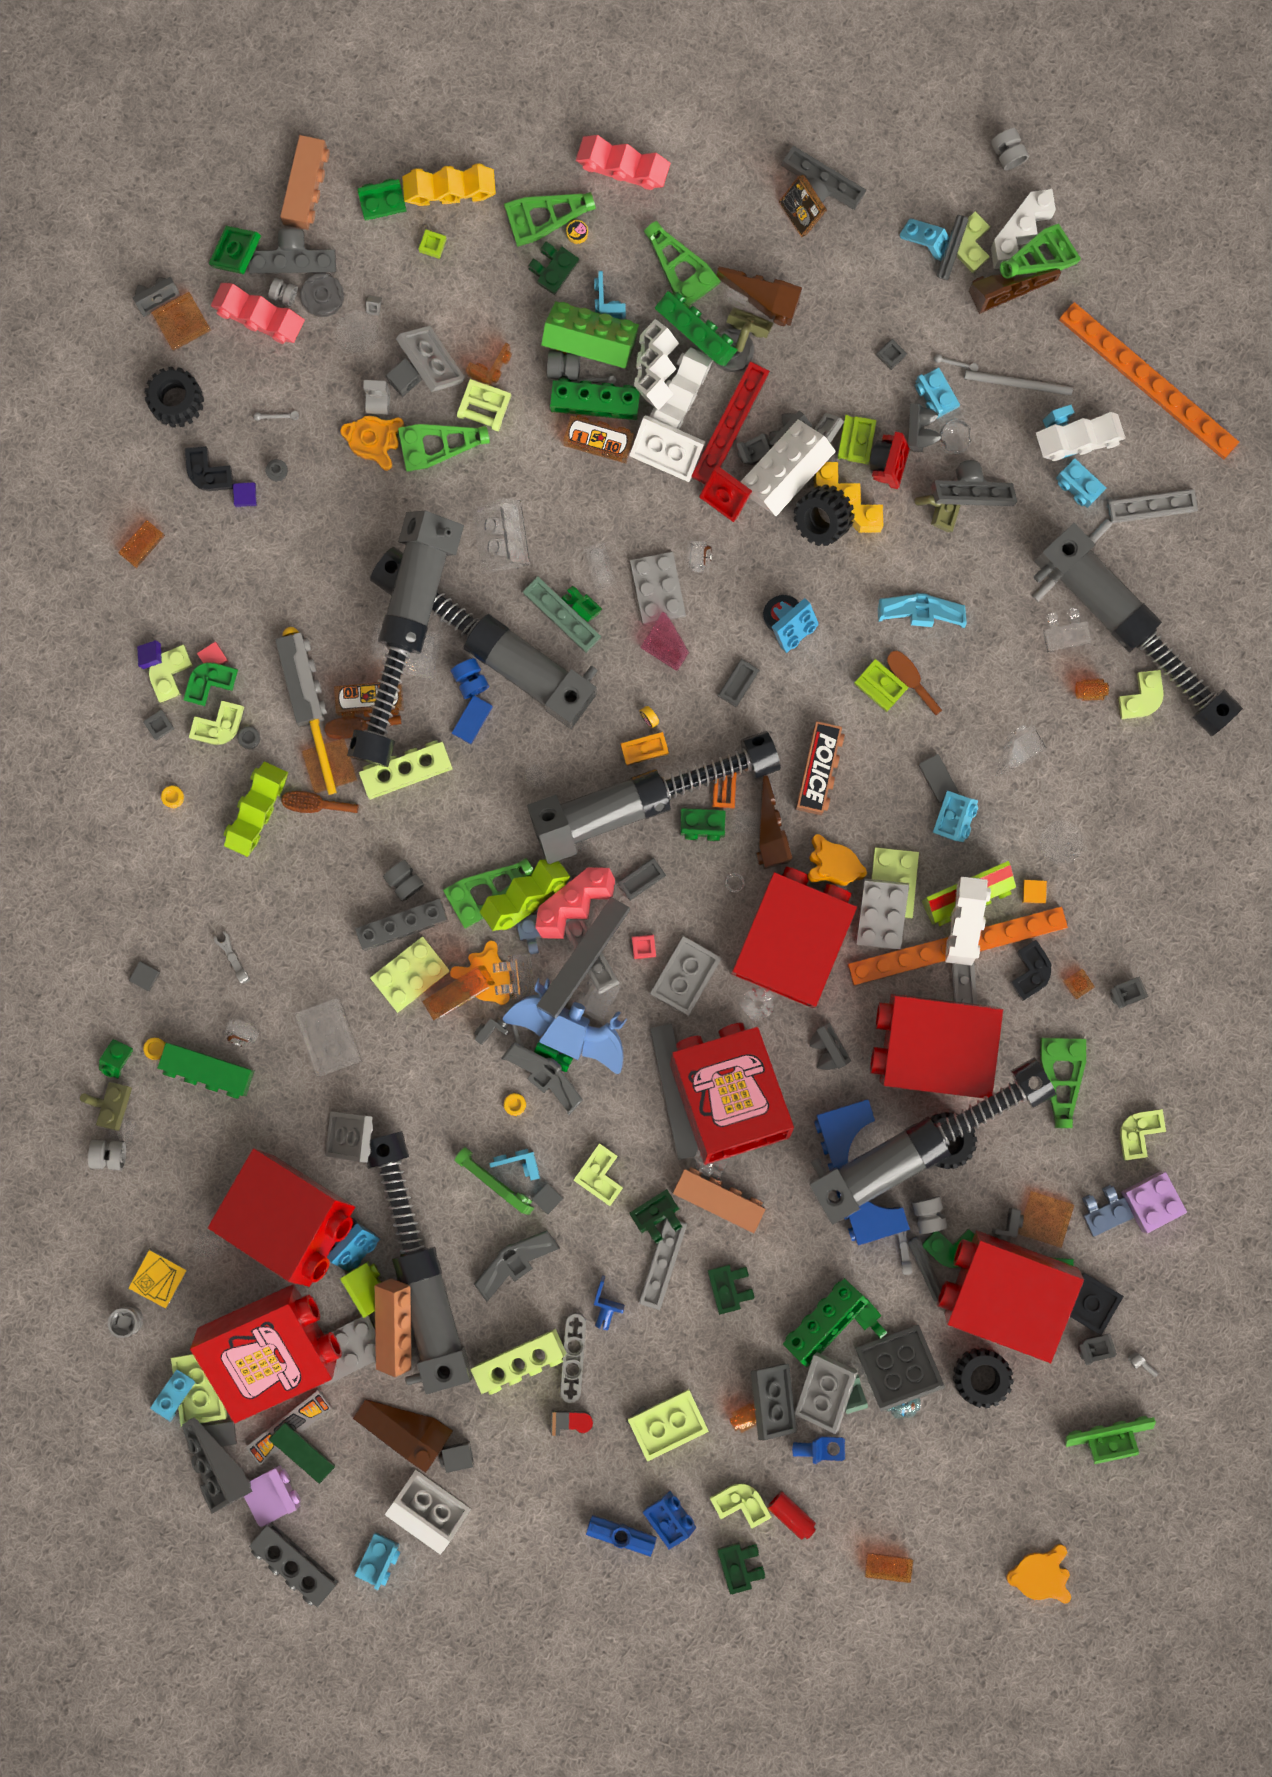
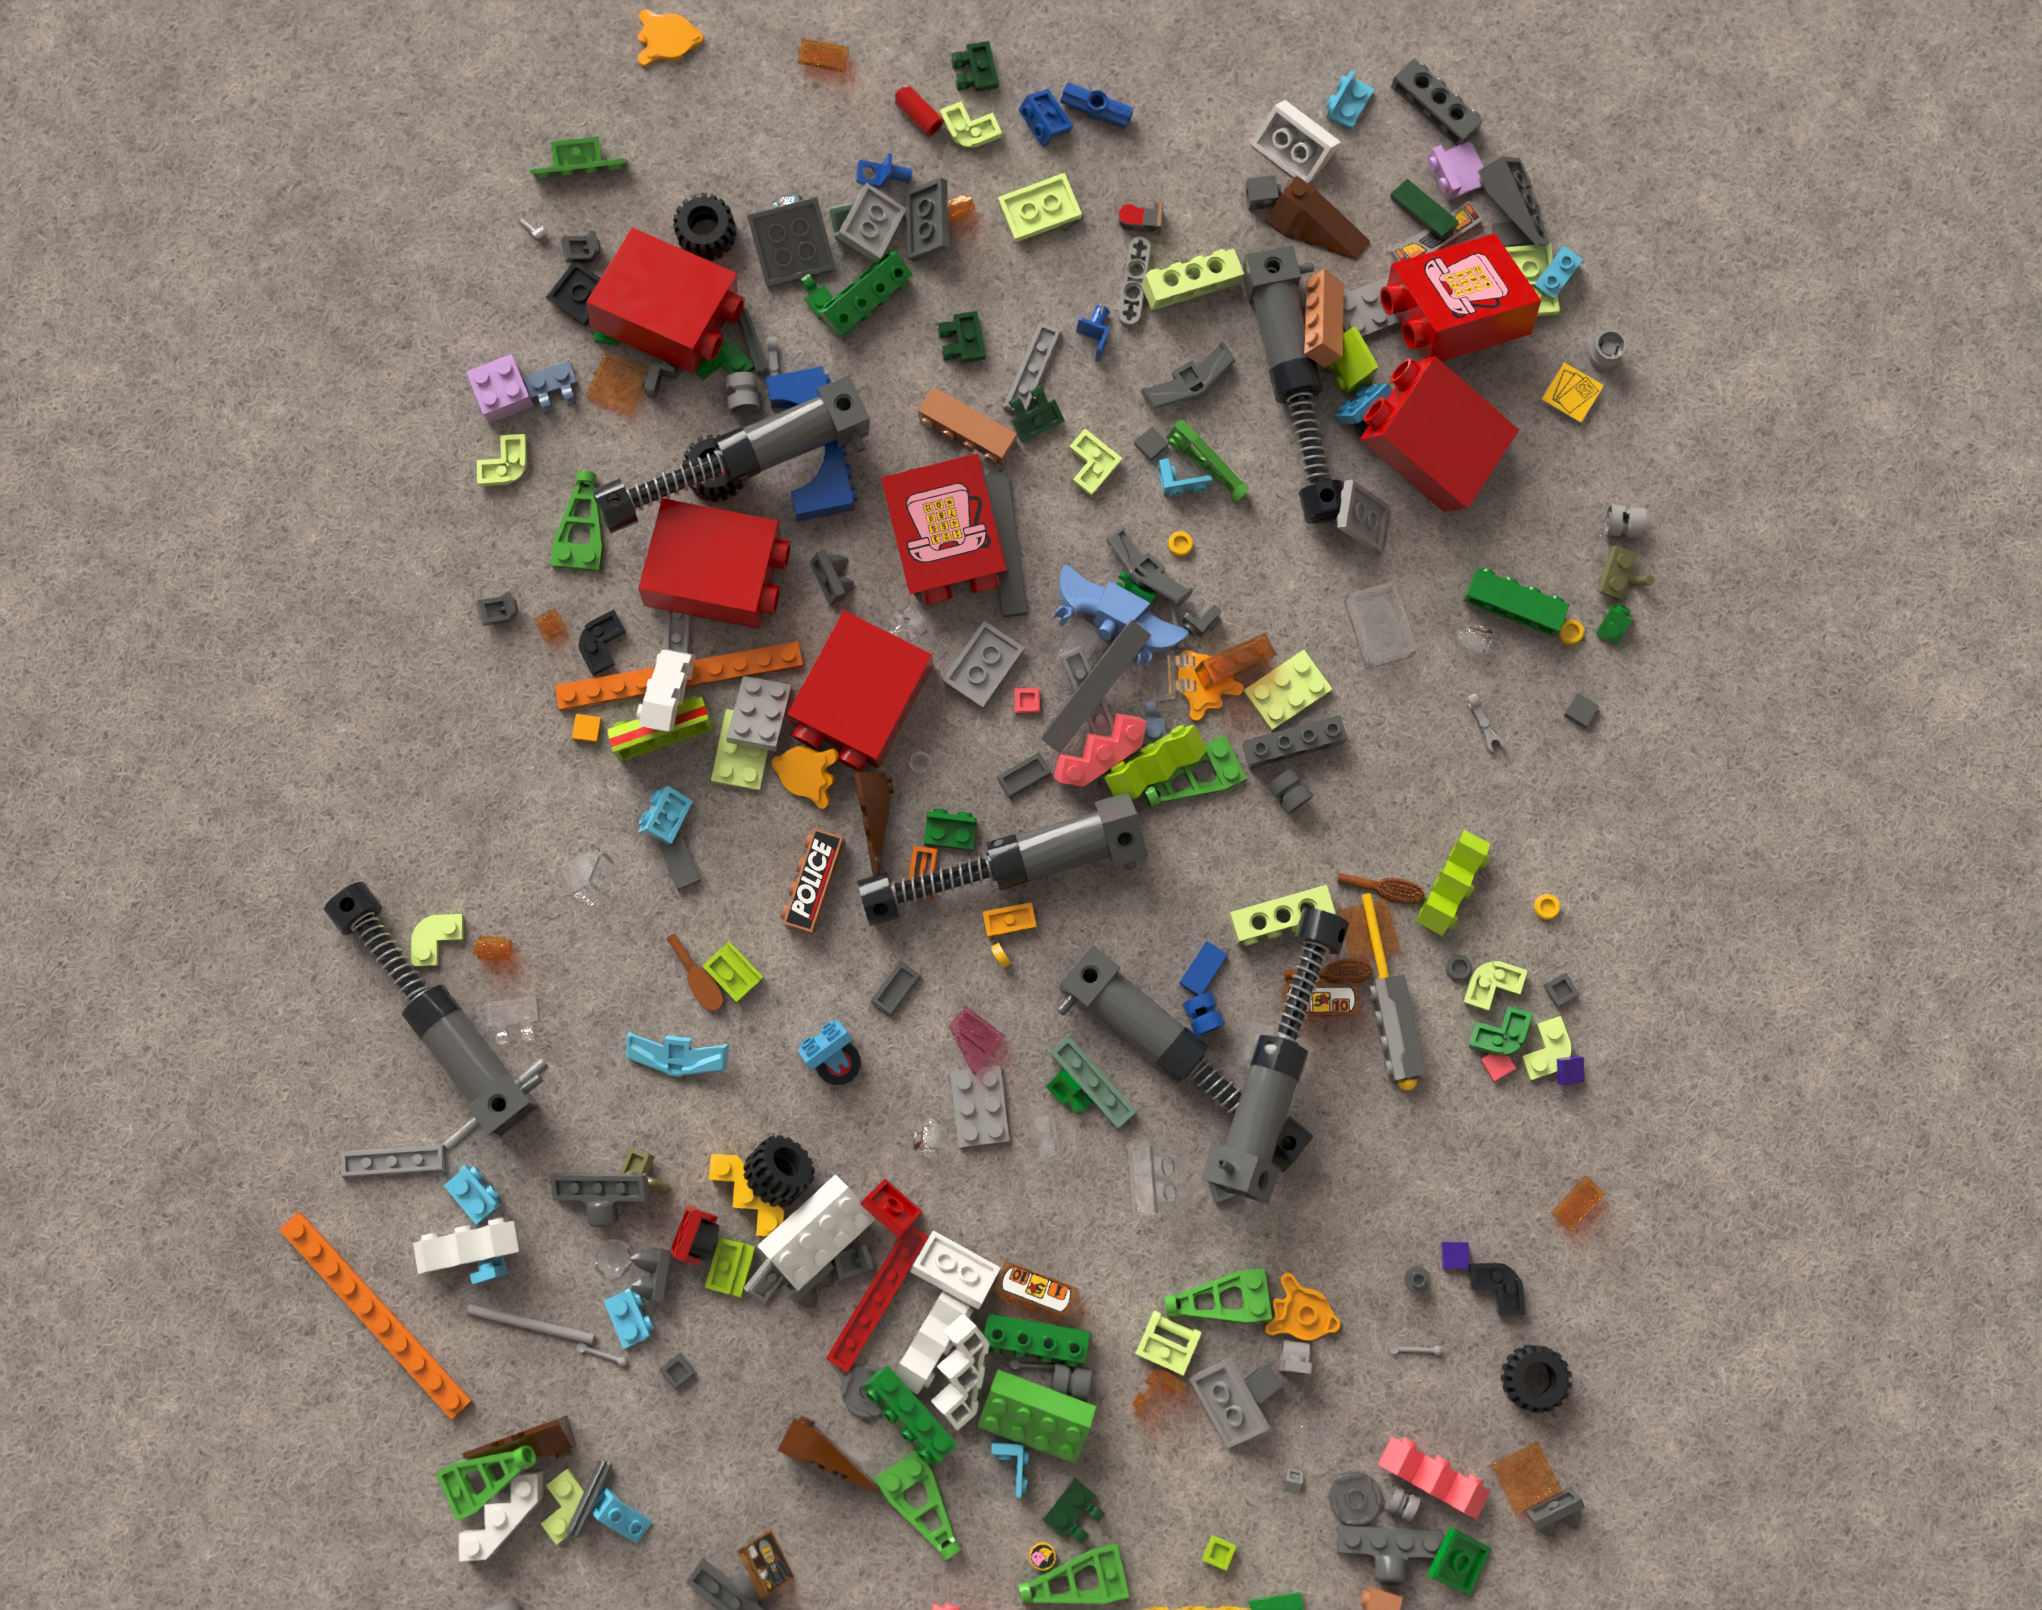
camera: 175 degrees left, 5 degrees down
(748, 323) = (843, 1419): olive plate -> none

